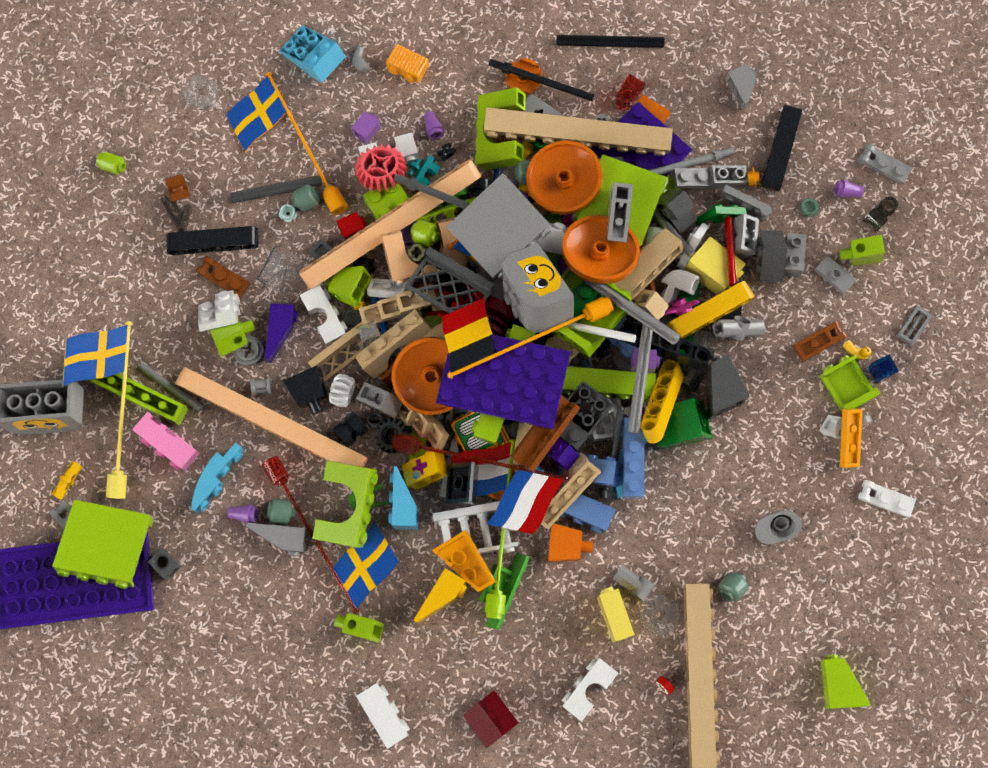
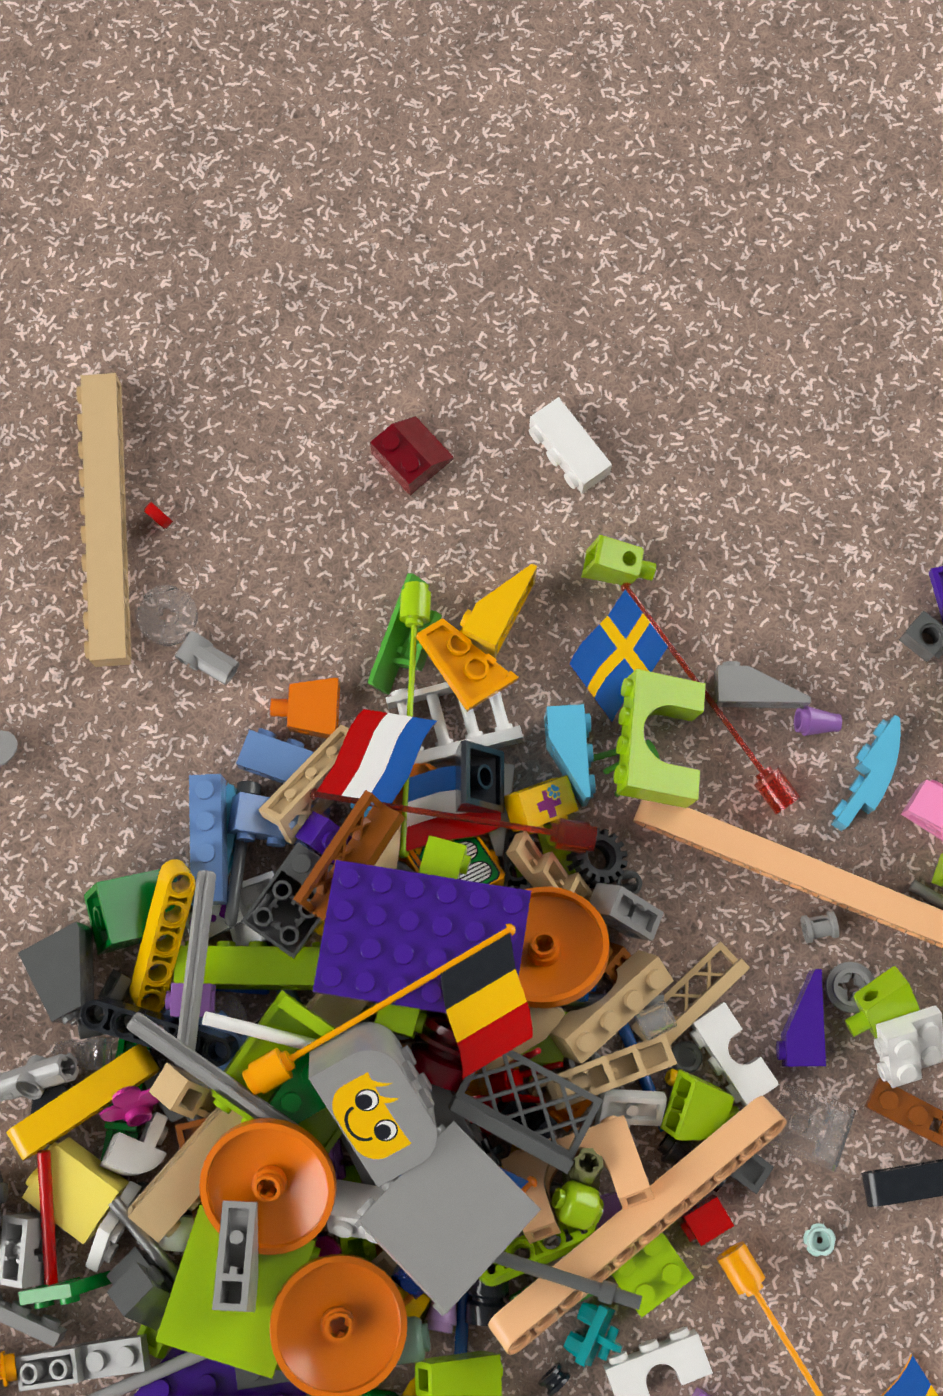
camera: 175 degrees right, 0 degrees up
(274, 189) = (846, 1285): dark grey axle -> none
(280, 511) = (760, 727): sand green head -> none
(306, 198) = (792, 1269): sand green head -> none
(308, 389) = (743, 925): black torso -> none
(342, 390) = (687, 925): white gear -> none
(350, 429) = (666, 864): black wheel -> none
(382, 160) = (649, 1347): coral gear -> none
(598, 673) = (258, 523): white arch -> none
(615, 614) = (232, 603): light yellow brick -> none
(733, 586) = (53, 662): sand green head -> none

